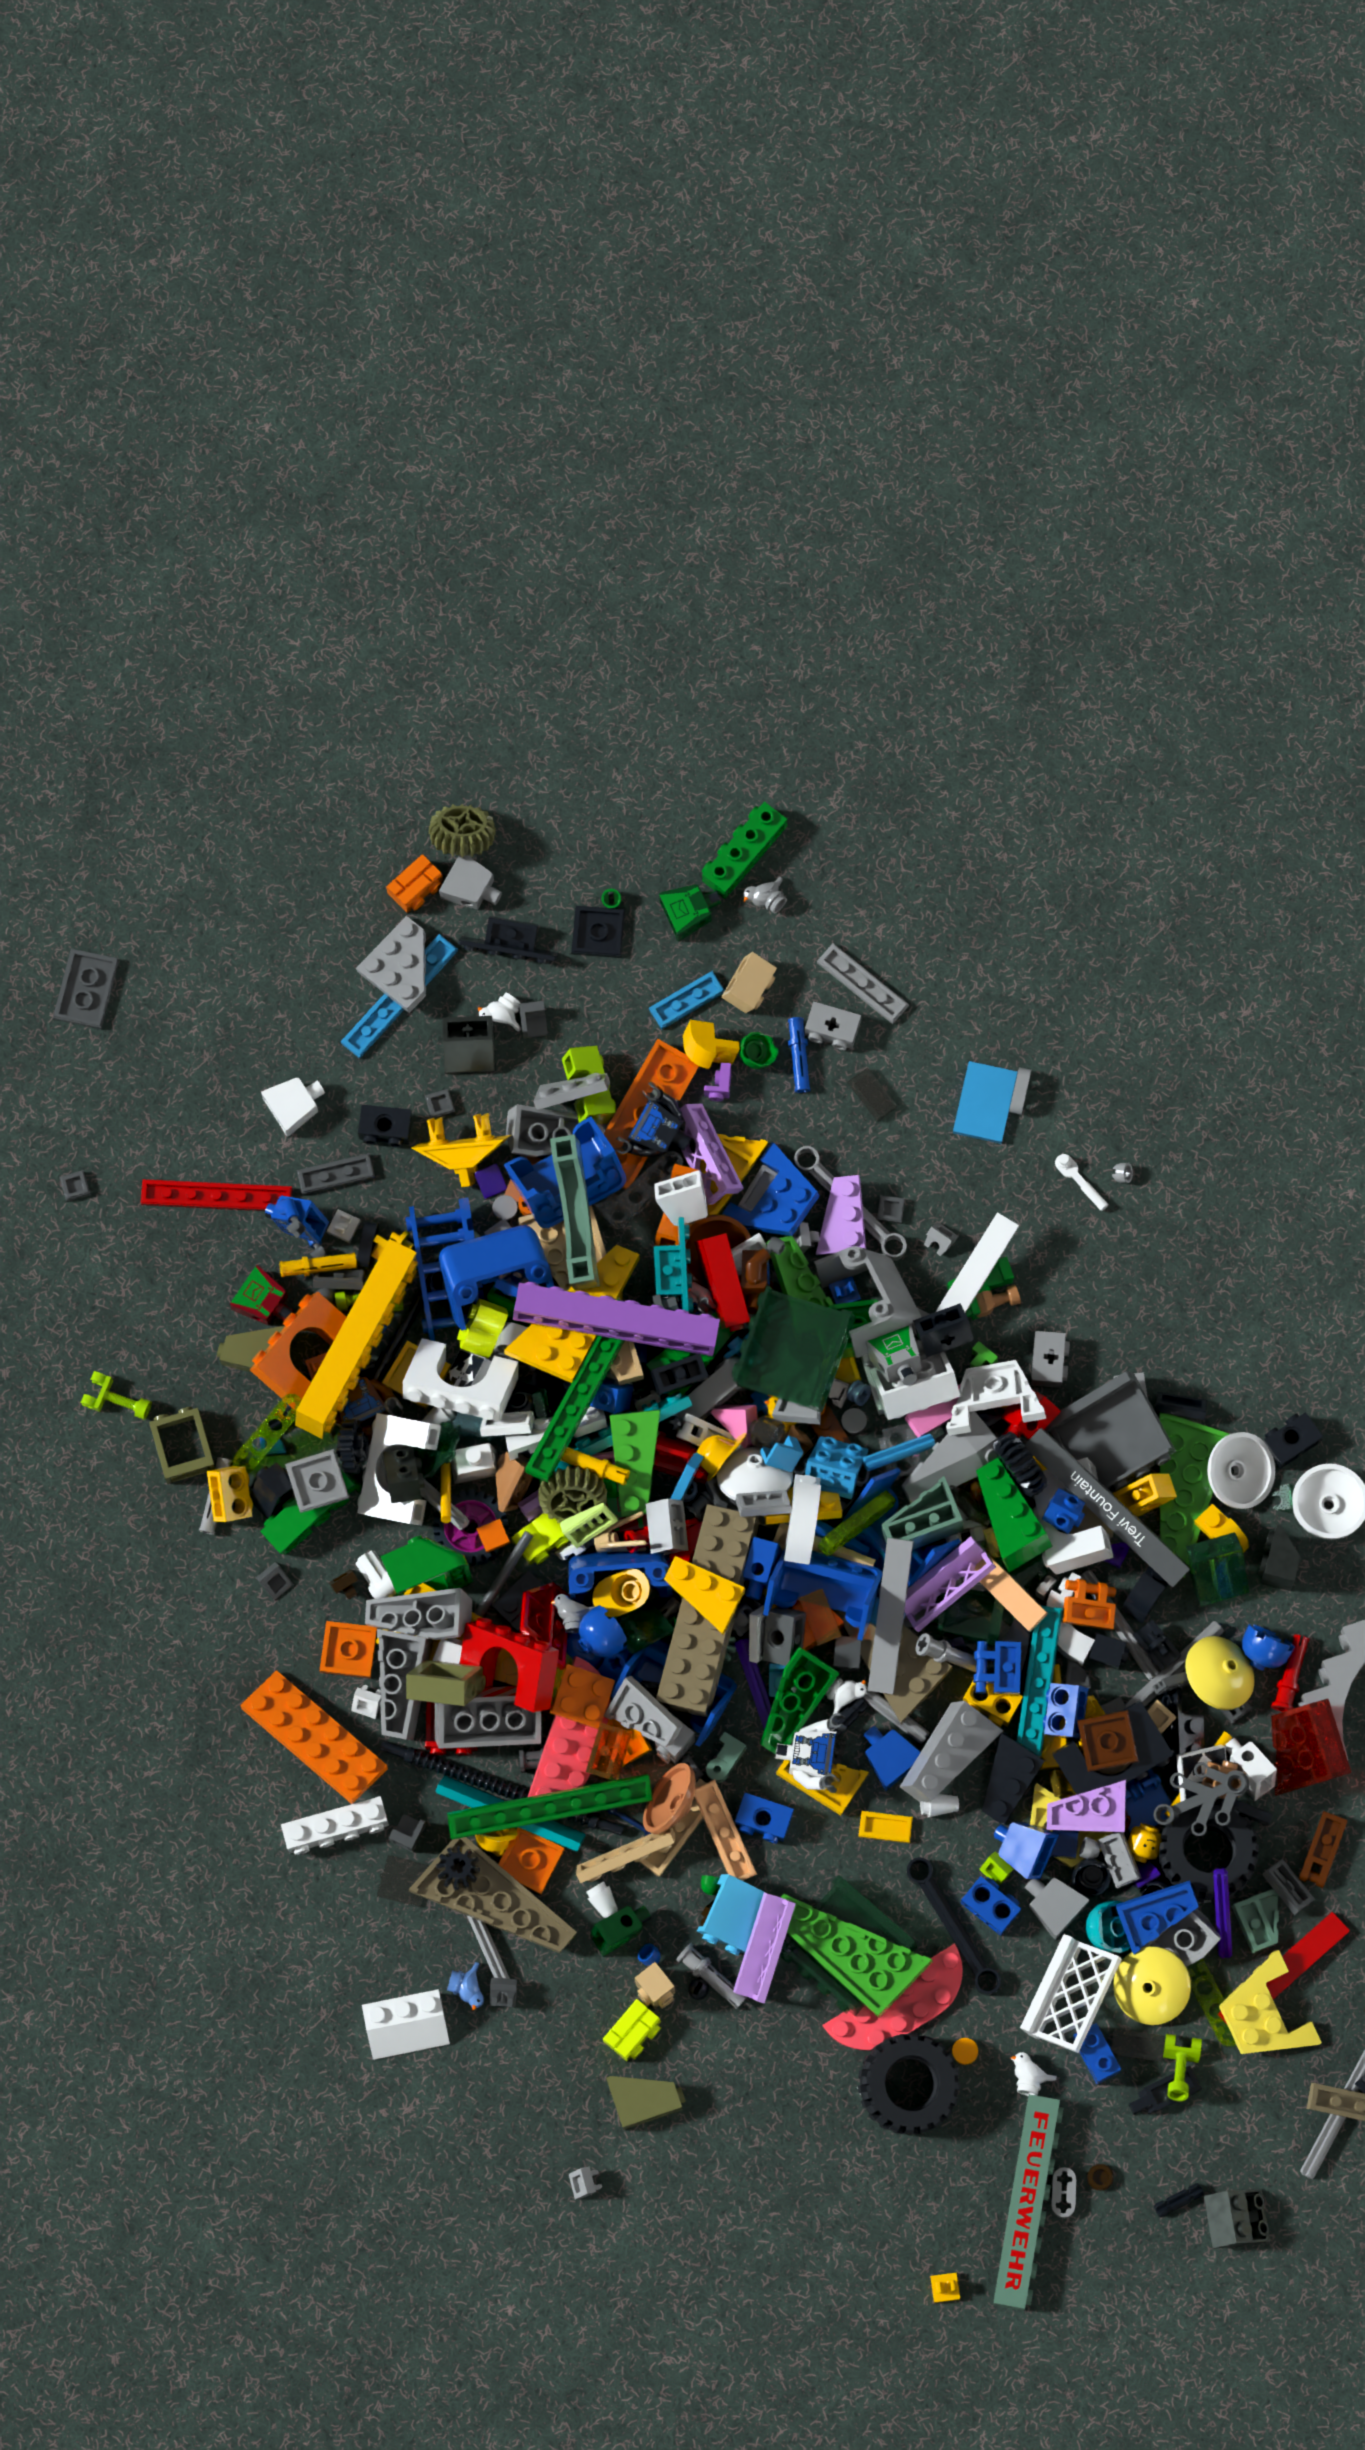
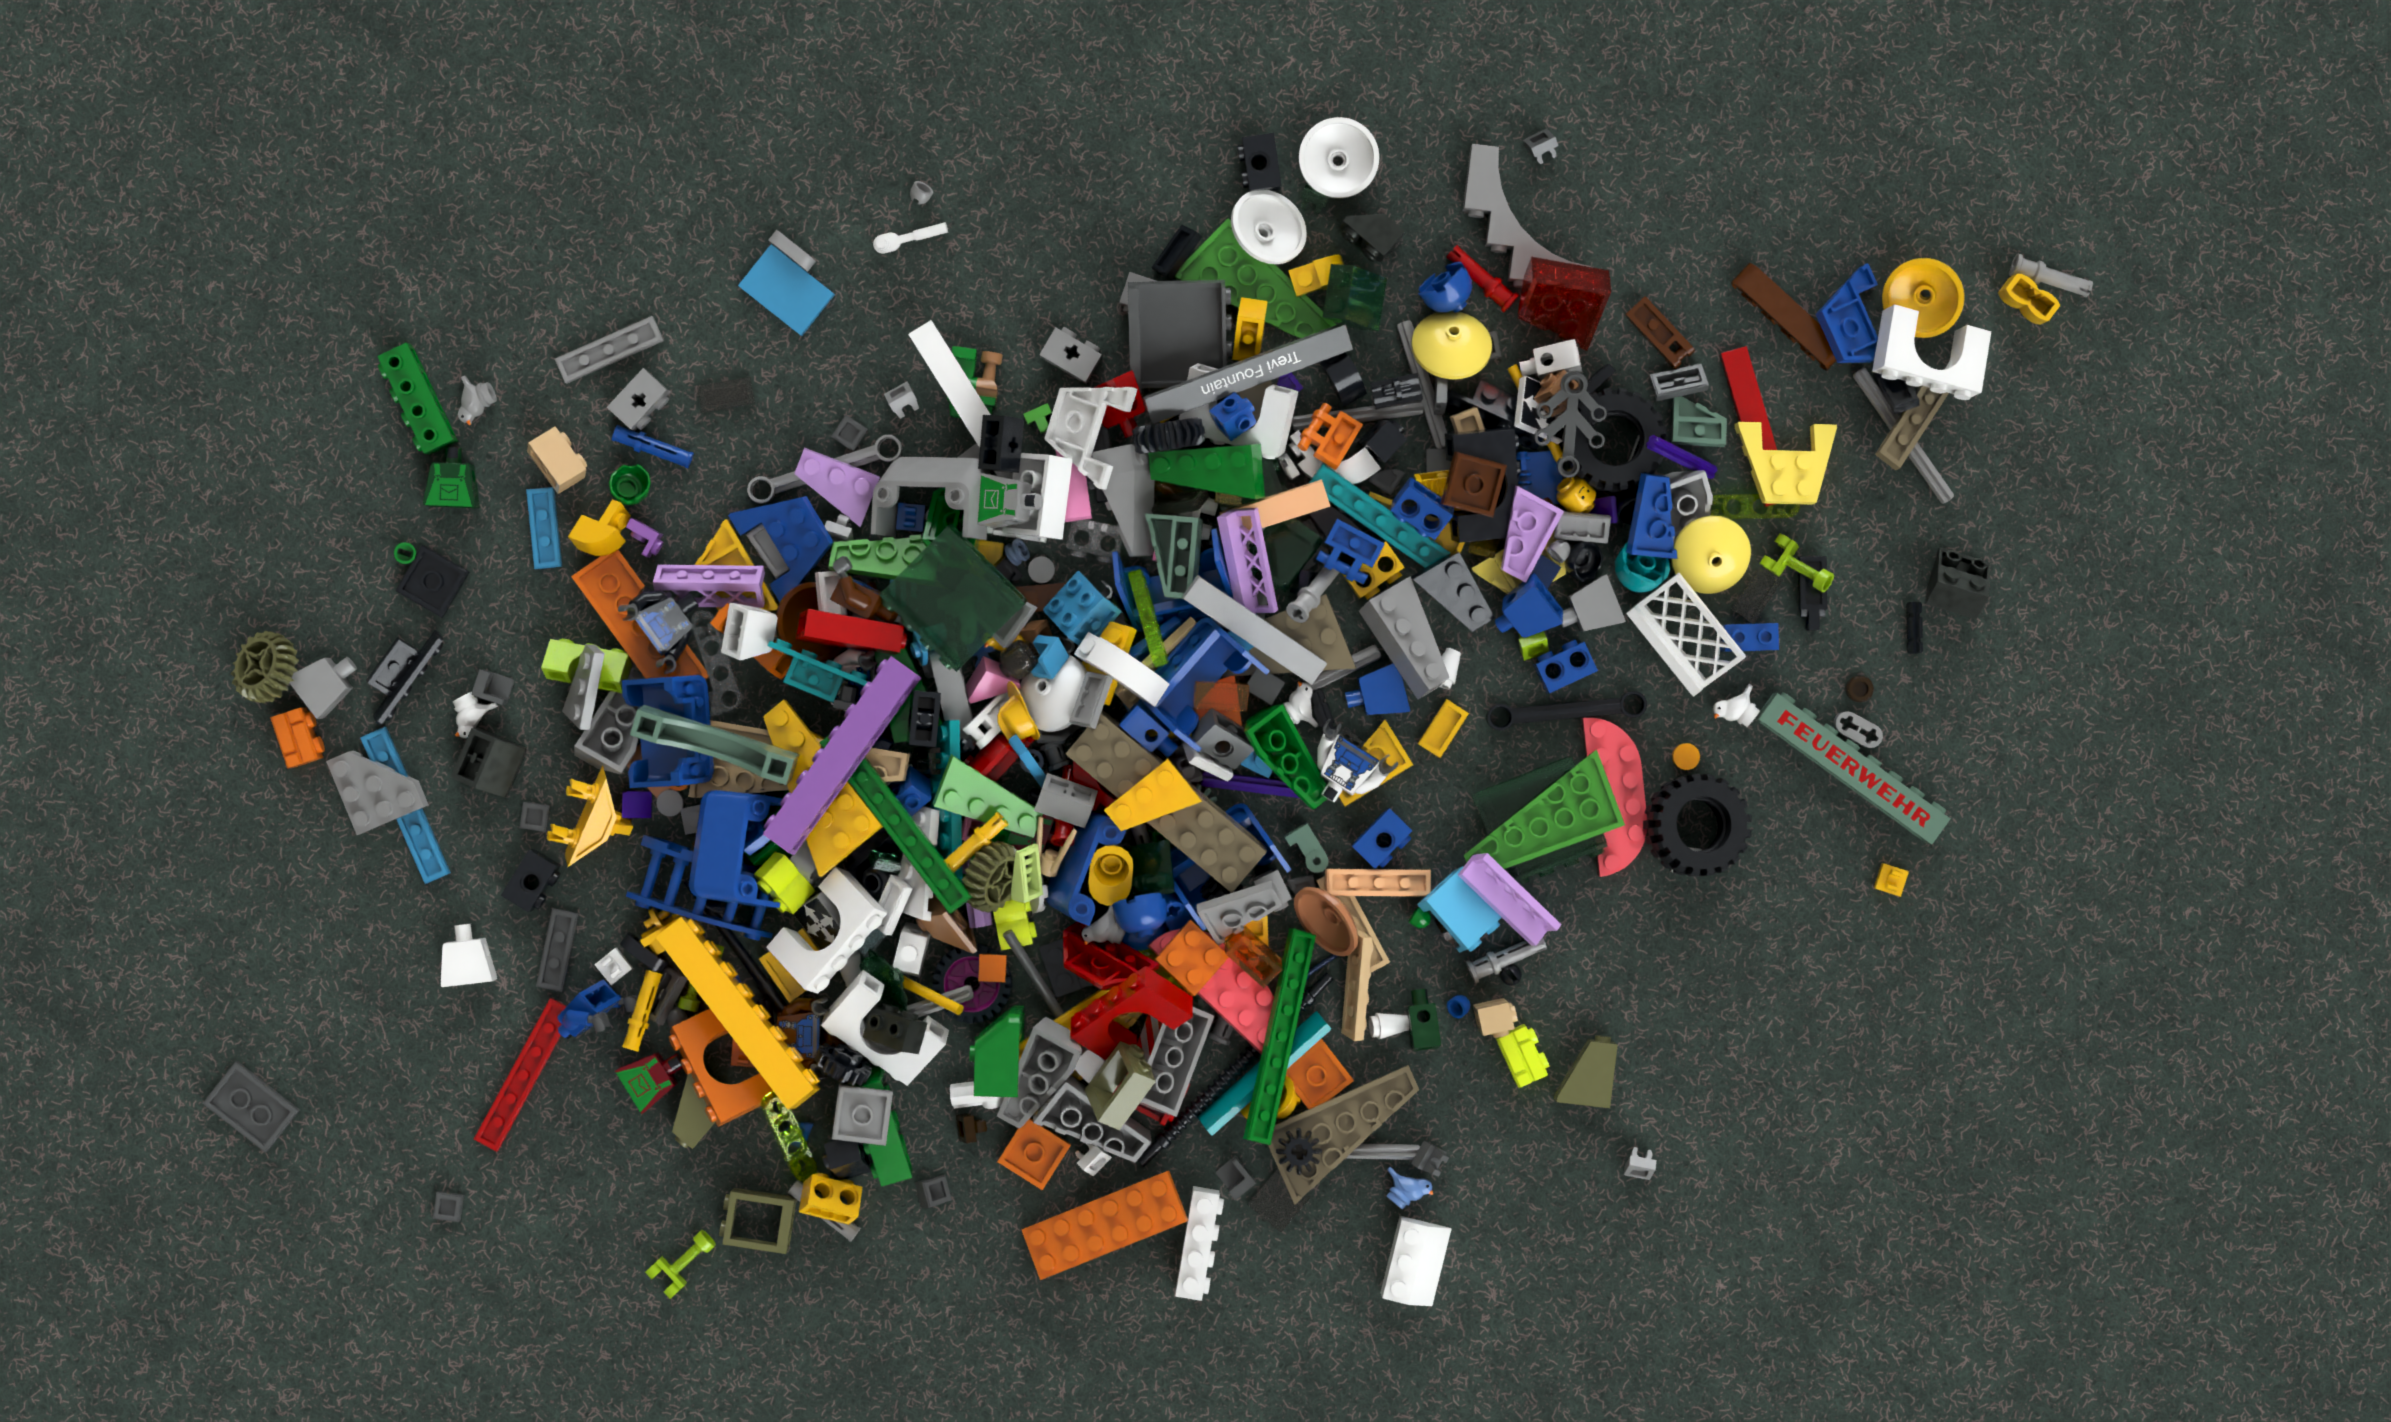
camera: 70 degrees left, 15 degrees up
(898, 1452) = (1097, 544): dark azure axle -> none

